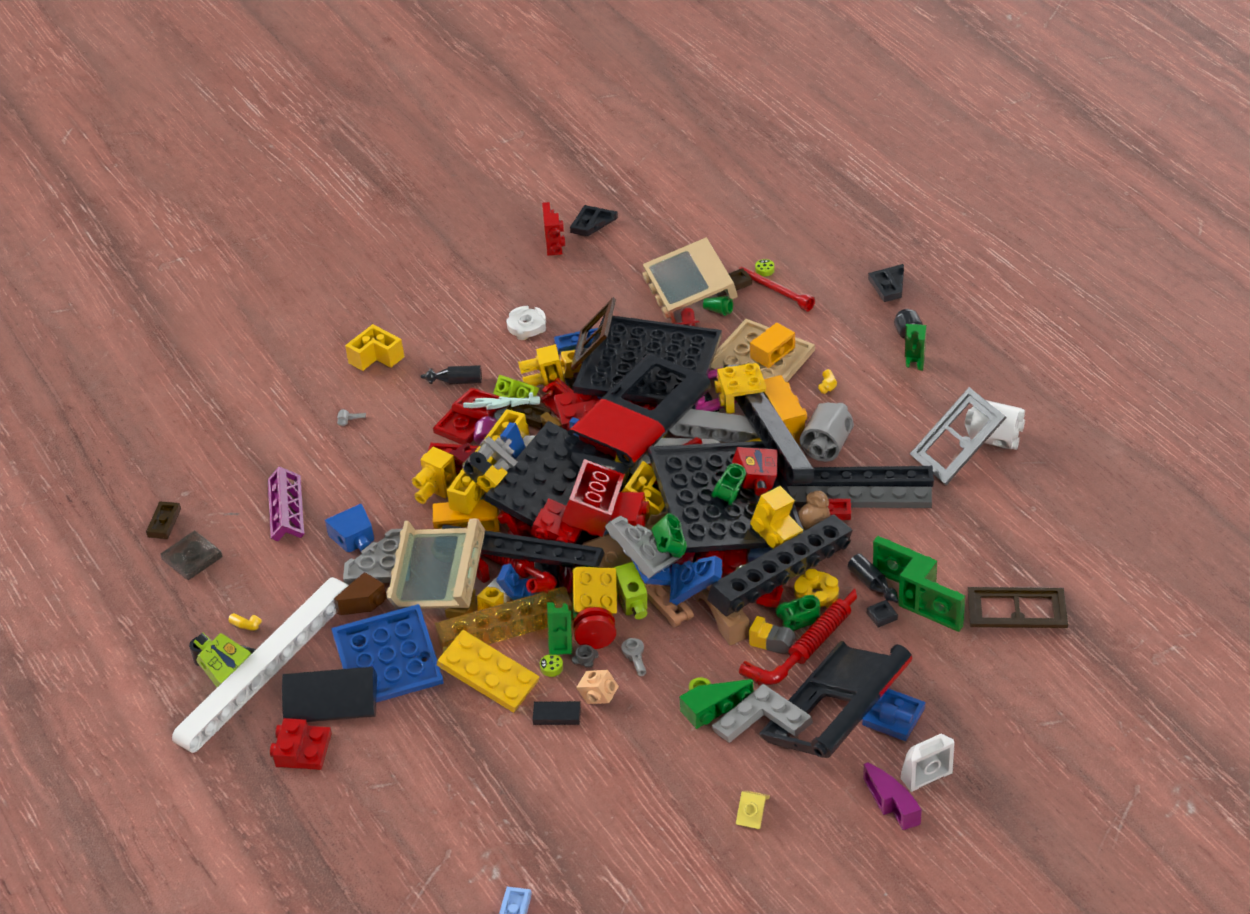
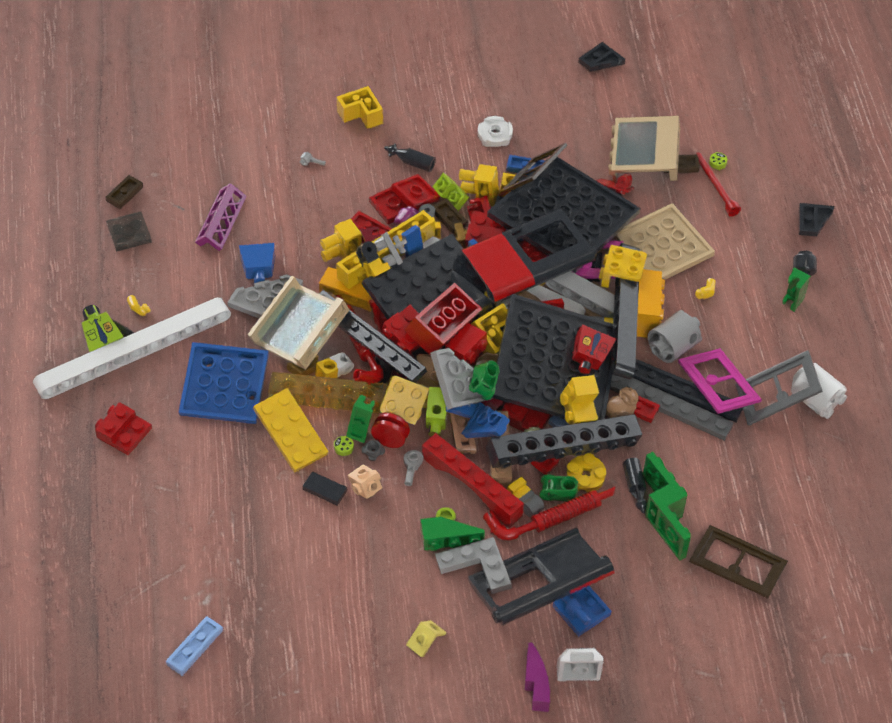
camera: 20 degrees right, 10 degrees up
(330, 694) = (163, 397): black slope -> none
(360, 596) = (232, 322): reddish brown slope -> none
(482, 571) = (335, 340): red tile -> none
(493, 403) = (423, 196): light aqua piece -> none
(512, 584) = (348, 362): blue slope -> none
(553, 227) = (560, 56): red plate -> none
(664, 630) = (496, 497): none -> red arch
(721, 305) = (659, 181): green cone -> none
(730, 483) = (557, 355): green piece -> none
(772, 345) = (676, 238): light orange brick -> none
(882, 613) = (626, 517): black tile -> none
(883, 463) = (704, 385): none -> dark pink door

